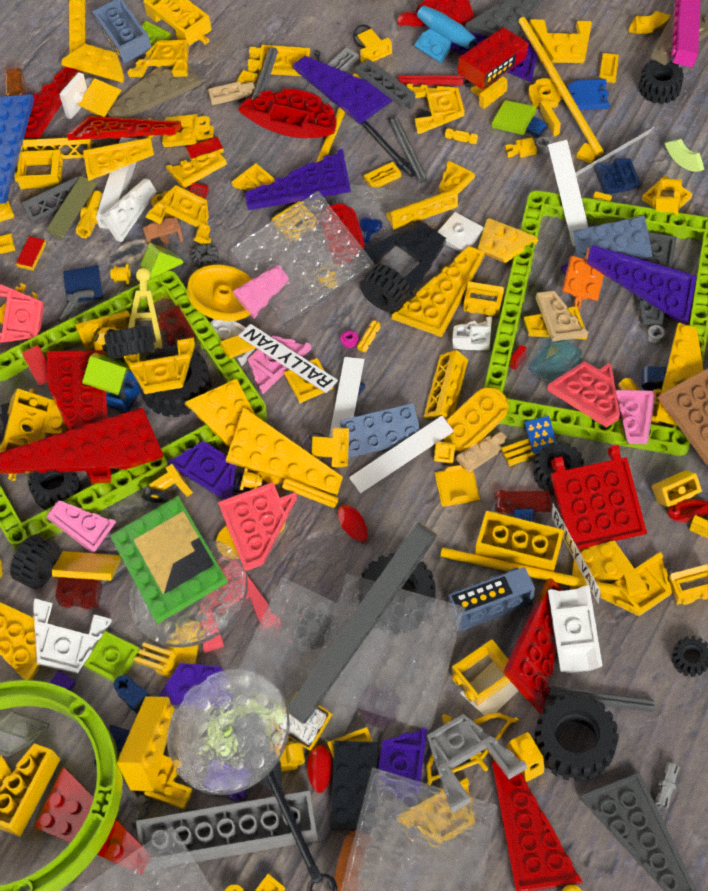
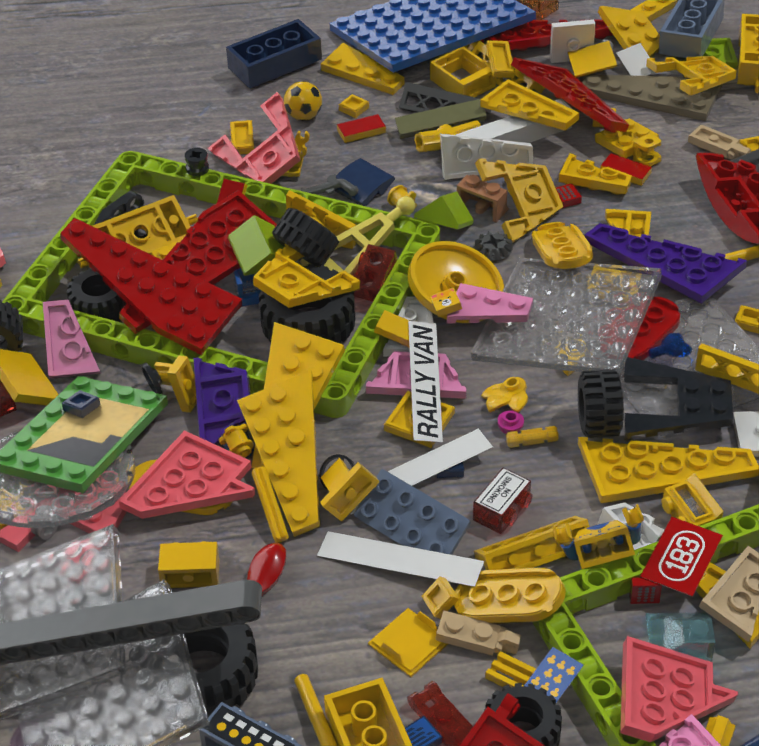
camera: 50 degrees right, 15 degrees down
(55, 141) = (500, 59): none -> yellow tile
(119, 78) = (635, 60): none -> white sticker
(146, 545) = (81, 404): none -> dark blue tile
(243, 222) = (562, 245): none -> yellow tile
(244, 307) = (446, 302): none -> yellow tile
(317, 559) = (189, 564): none -> yellow brick
(328, 329) = (509, 392): none -> yellow plate
(404, 380) = (502, 501): none -> brick
(480, 351) = (603, 541): none -> torso
(516, 325) = (681, 556): none -> red sticker

